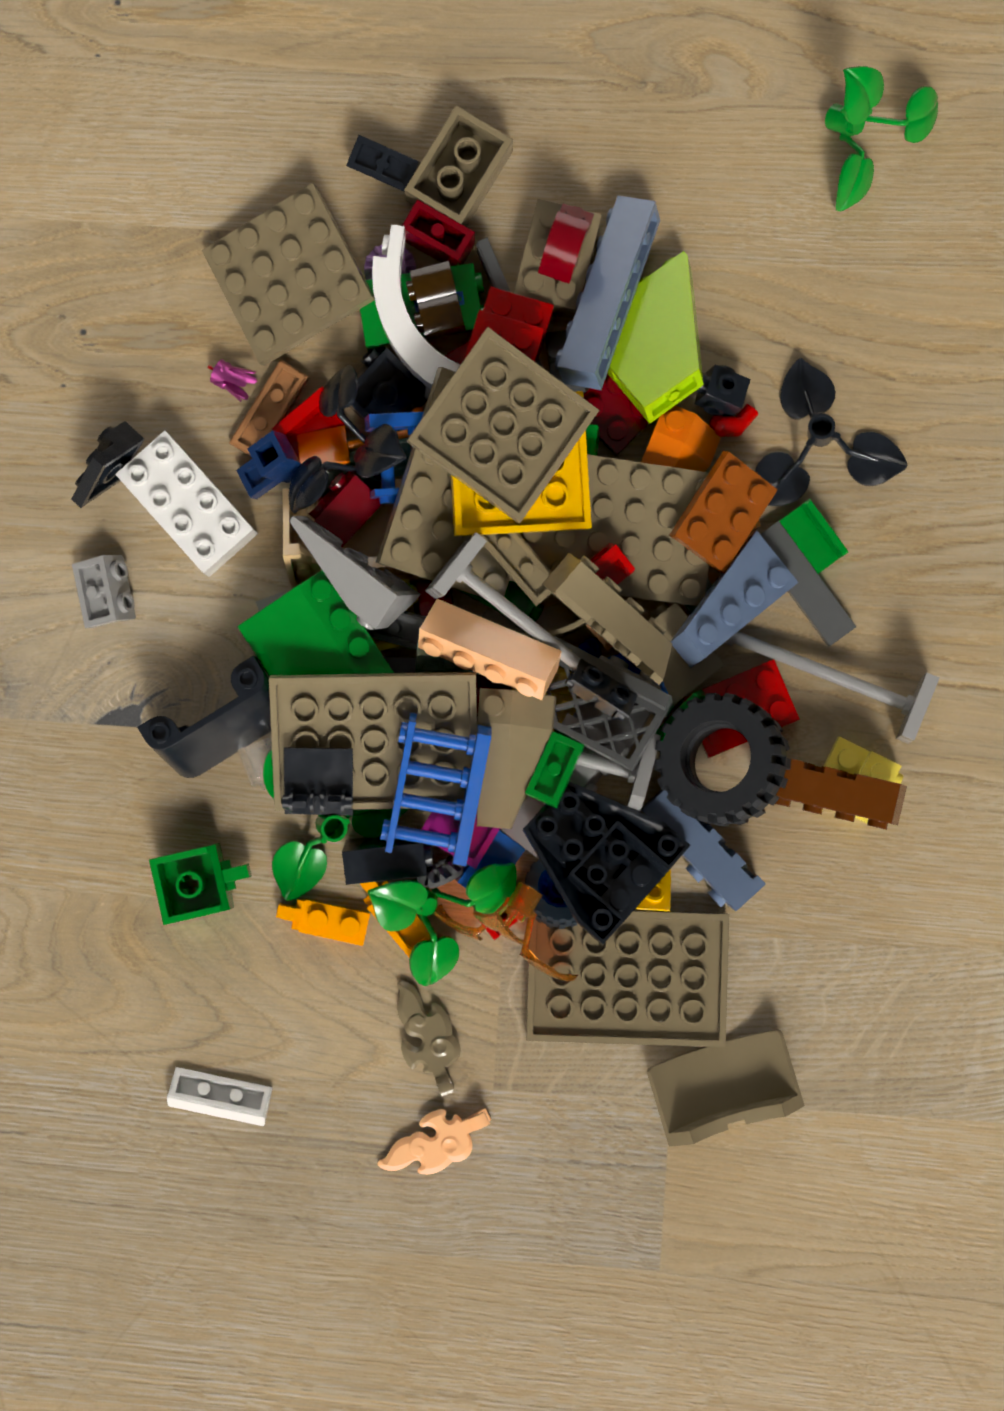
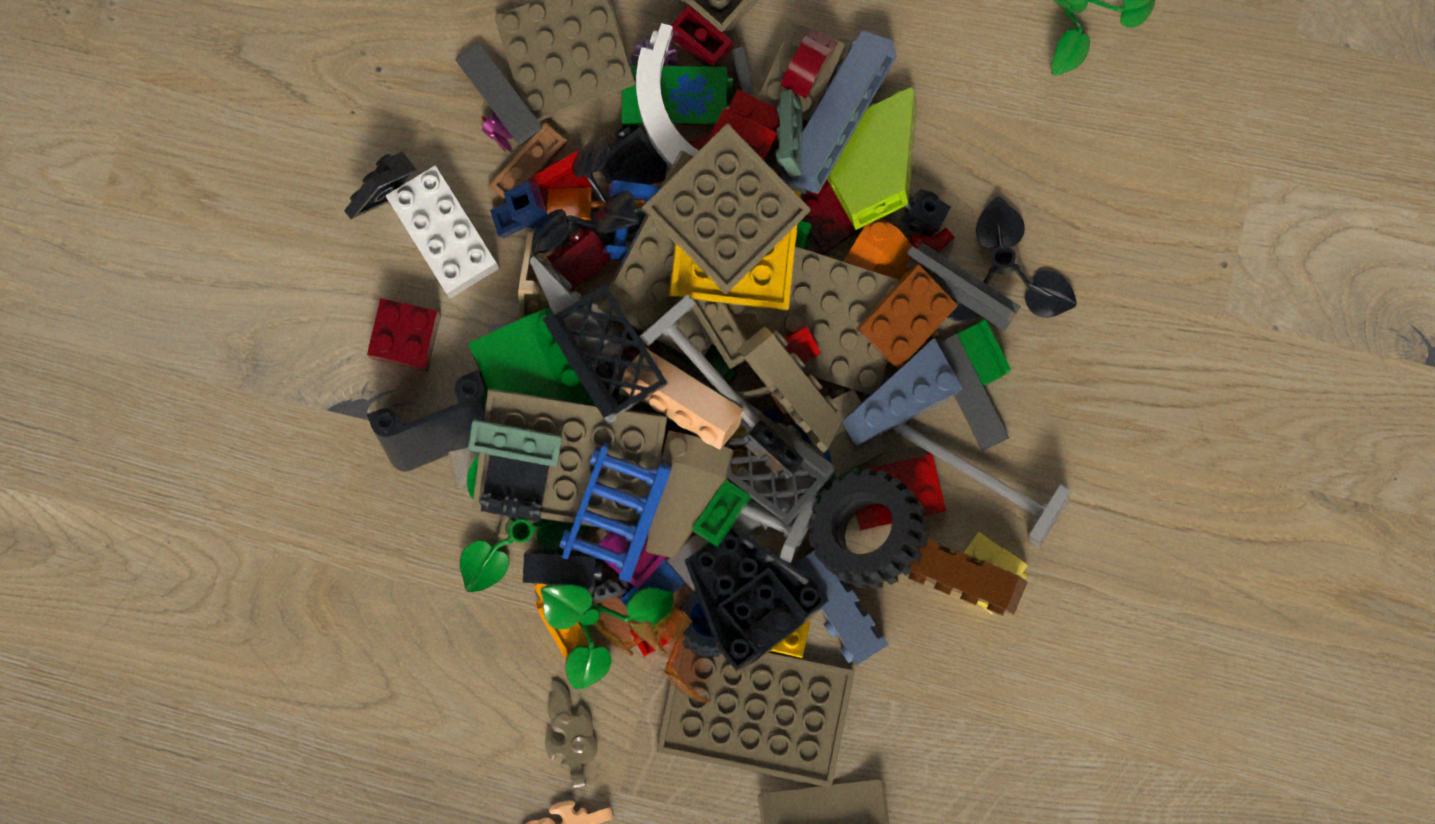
camera: 10 degrees right, 5 degrees down
(103, 590) = (355, 294): light grey bracket -> none
(164, 626) = (404, 334): none -> dark red brick
(214, 877) = (407, 566): green hinge -> none
(219, 1096) = (377, 756): white slope -> none
(222, 337) = (498, 94): none -> dark grey tile
(310, 732) = (515, 443): none -> sand green plate
(326, 920) = (499, 616): light orange hinge -> none
(372, 635) = (583, 368): none -> black fence
(436, 300) = (690, 94): dark brown brick -> none
(559, 327) = (790, 133): none -> sand green plate
(782, 467) = (965, 287): none -> dark grey fence

